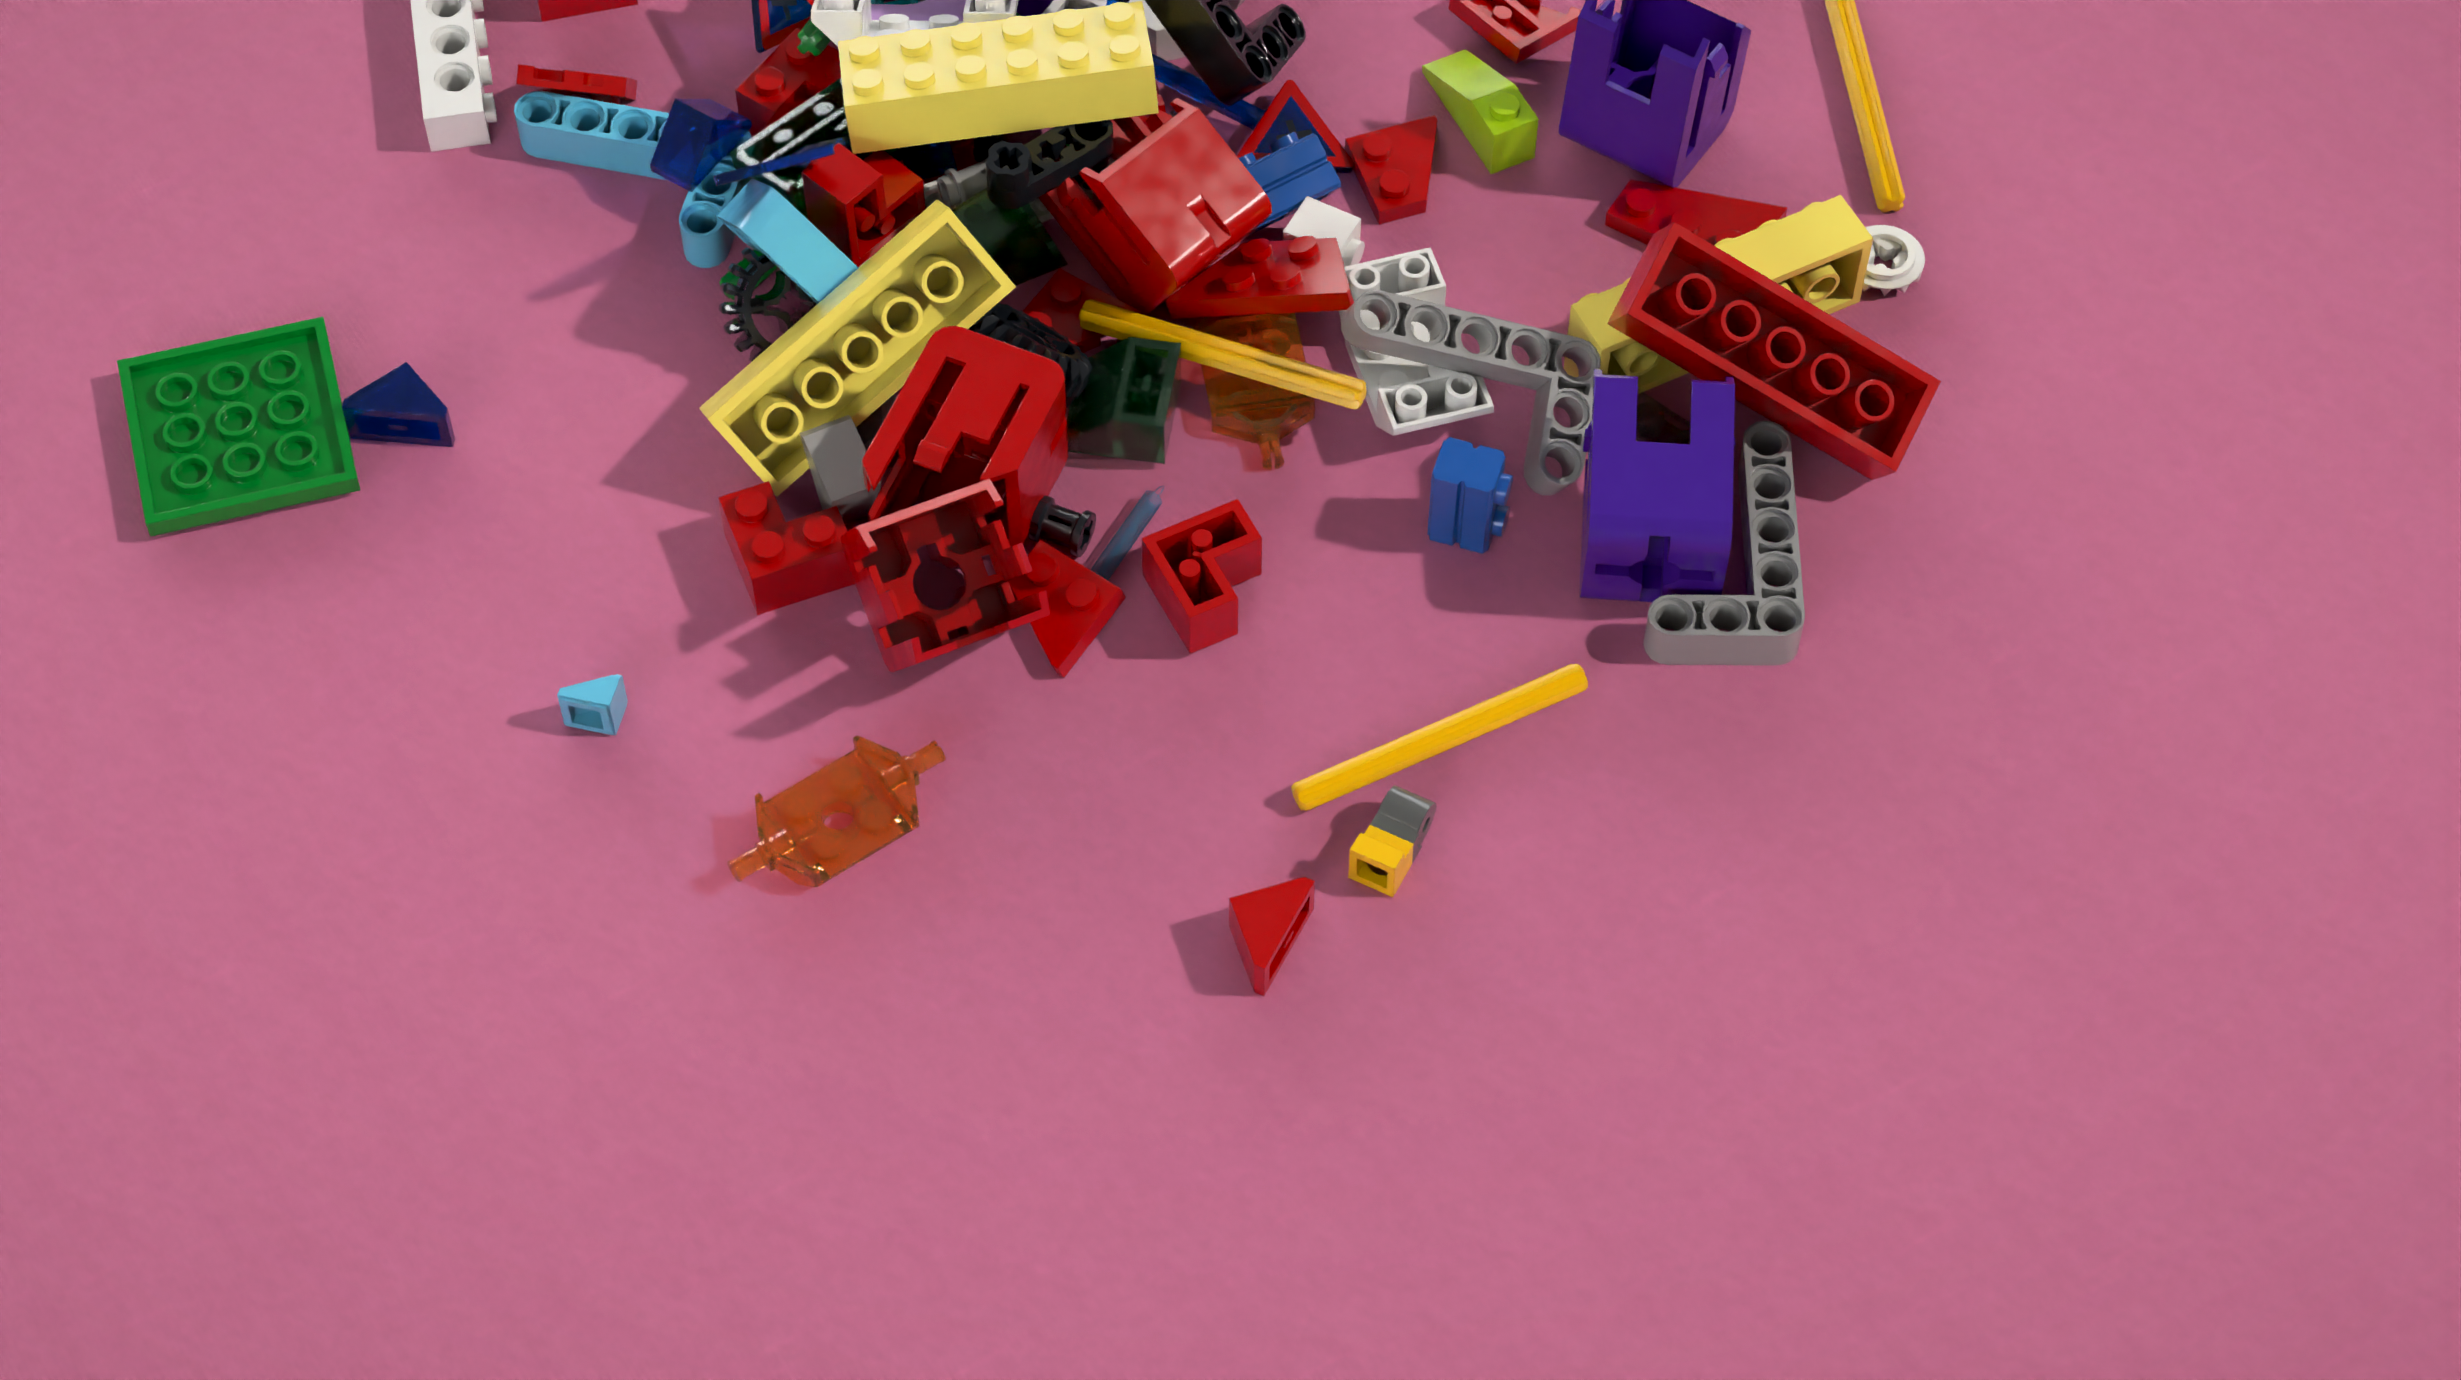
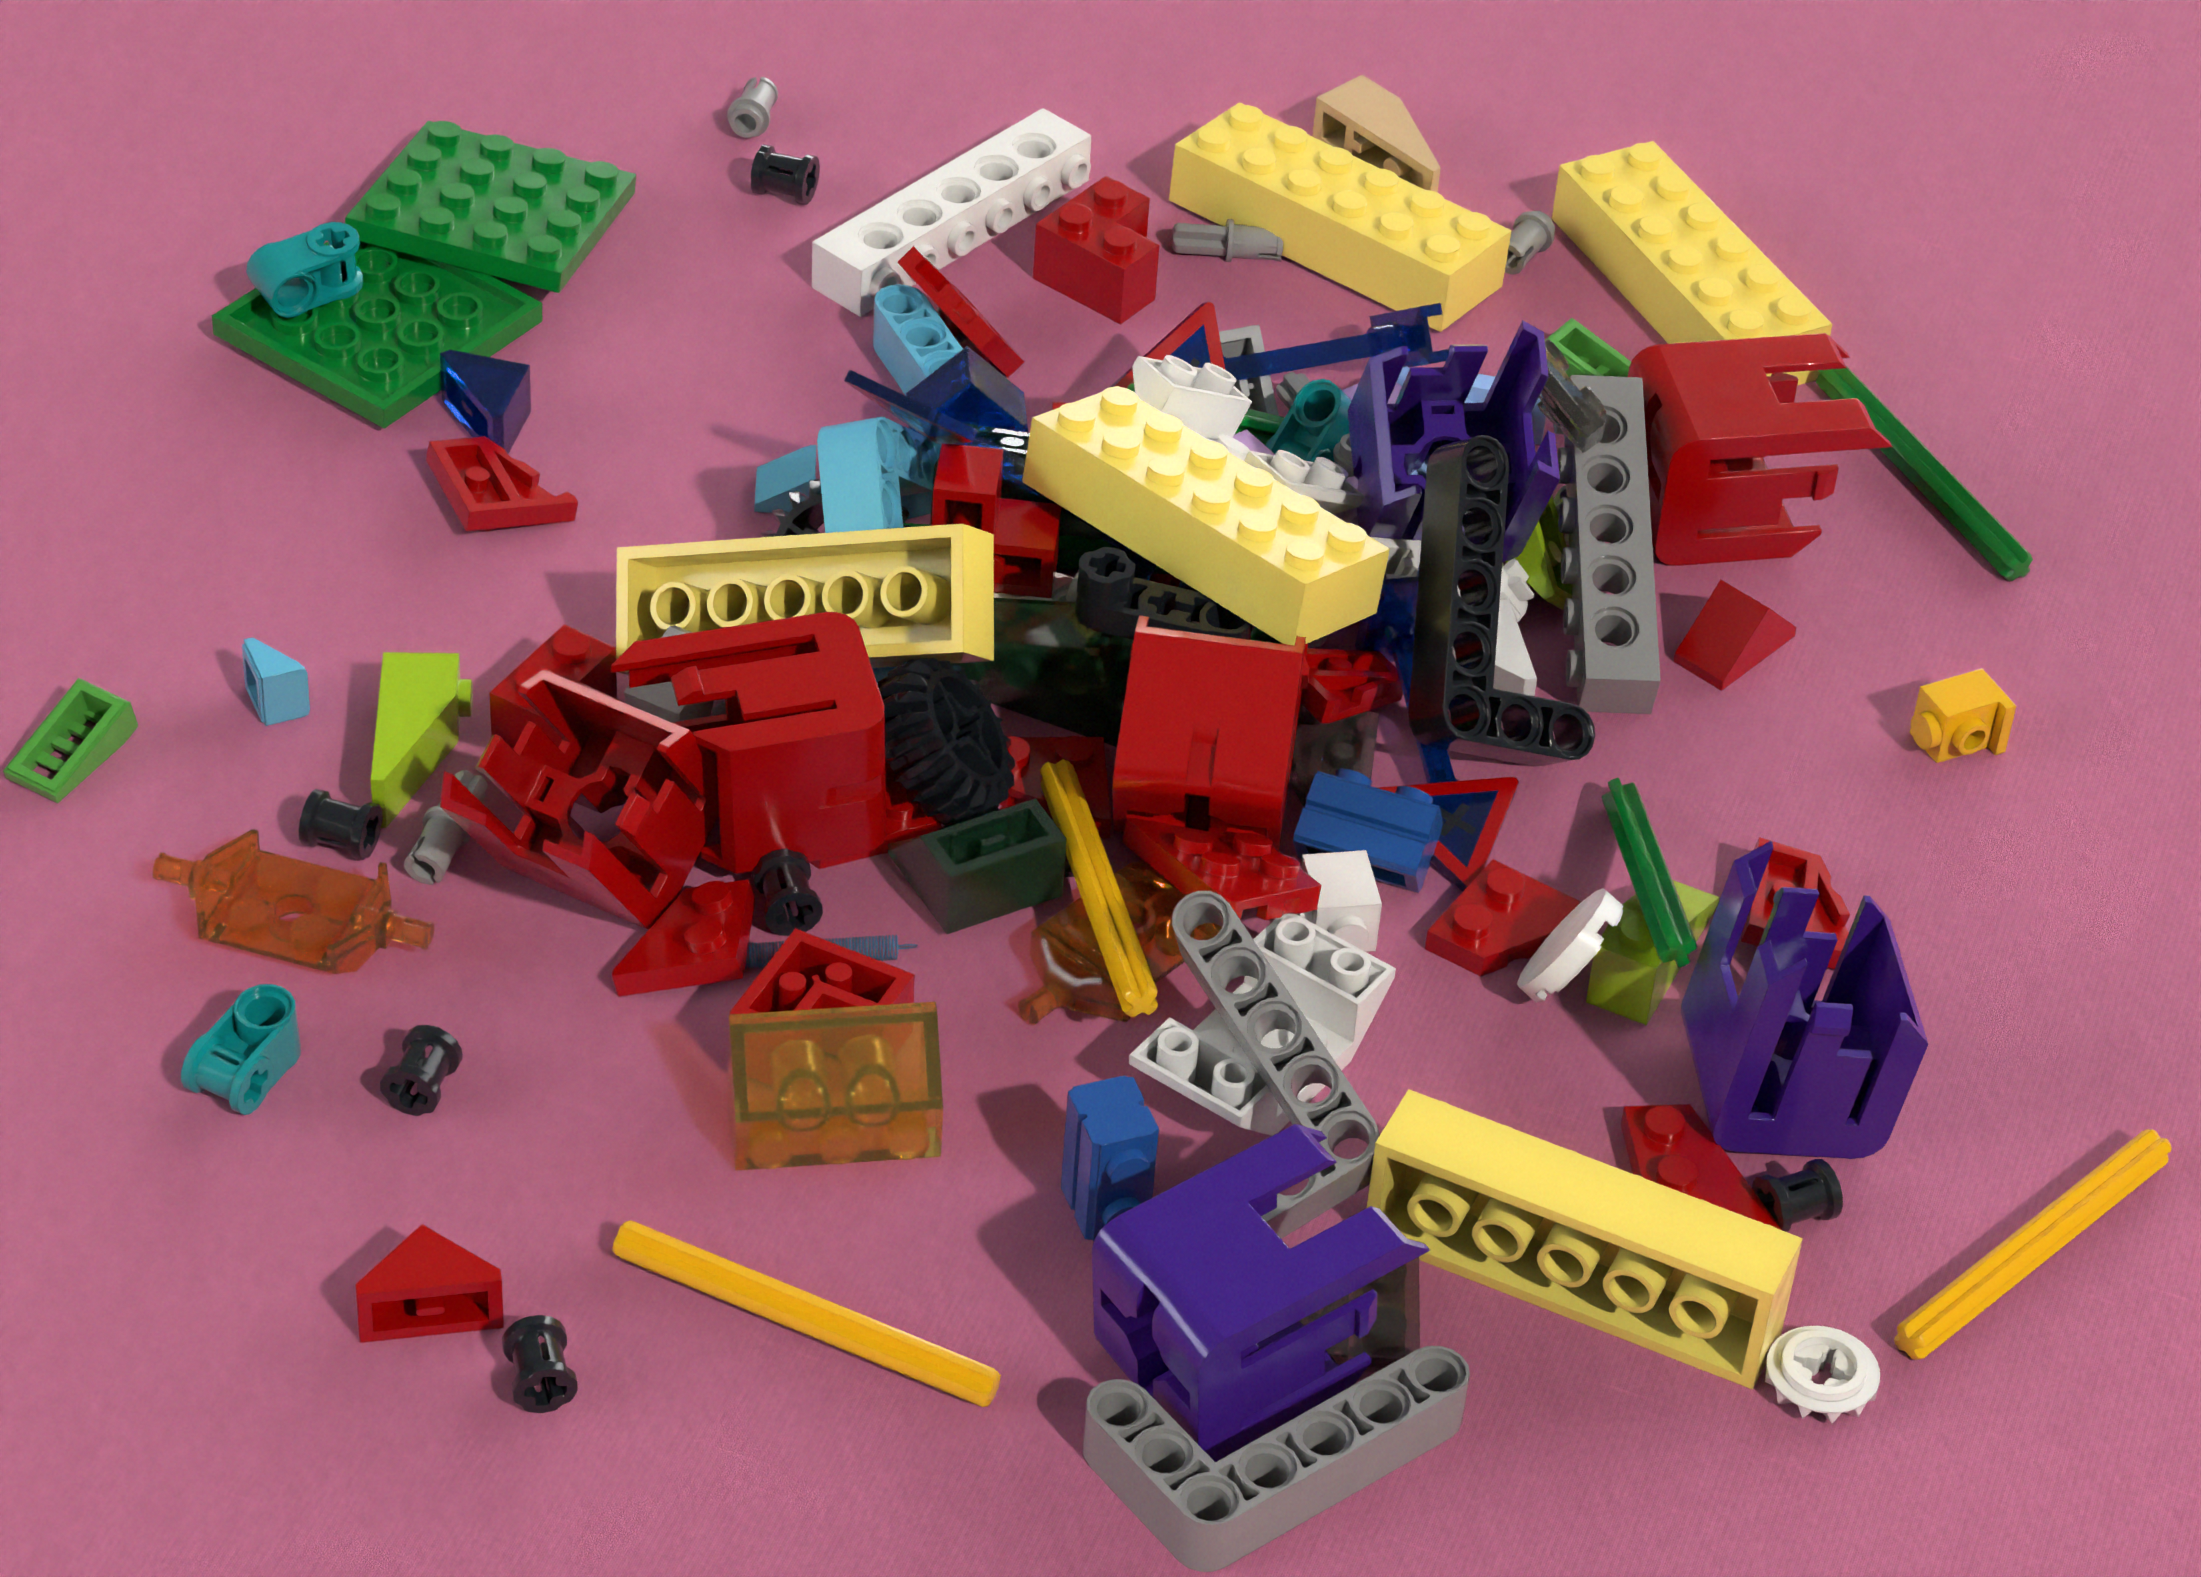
camera: 50 degrees right, 15 degrees down
(170, 433) = (305, 272): none -> teal piece
(177, 284) = (492, 205): none -> green plate
(211, 70) = (750, 112): none -> light grey pin
(288, 91) = (798, 175): none -> black bush
(492, 460) = (493, 488): none -> red wing
(530, 822) = (81, 703): none -> bright green slope
(645, 287) = (783, 476): none -> medium azure slope
(705, 637) = (415, 723): none -> lime slope
(778, 742) = (340, 824): none -> black bush
(831, 681) = (441, 836): none -> light grey axle
(966, 921) = (246, 1048): none -> teal piece
(1060, 824) = (421, 1070): none -> black bush
(1285, 606) = (834, 1086): none -> clear yellow slope
(1379, 903) = (539, 1363): none -> black bush
(1391, 840) = (632, 1334): leg -> none
(1454, 67) = (1649, 873): none -> green axle
(1473, 148) = (1569, 946): none -> white tile
(1743, 177) = (1801, 1194): none -> black bush
(1779, 349) = (1522, 1288): red brick -> none

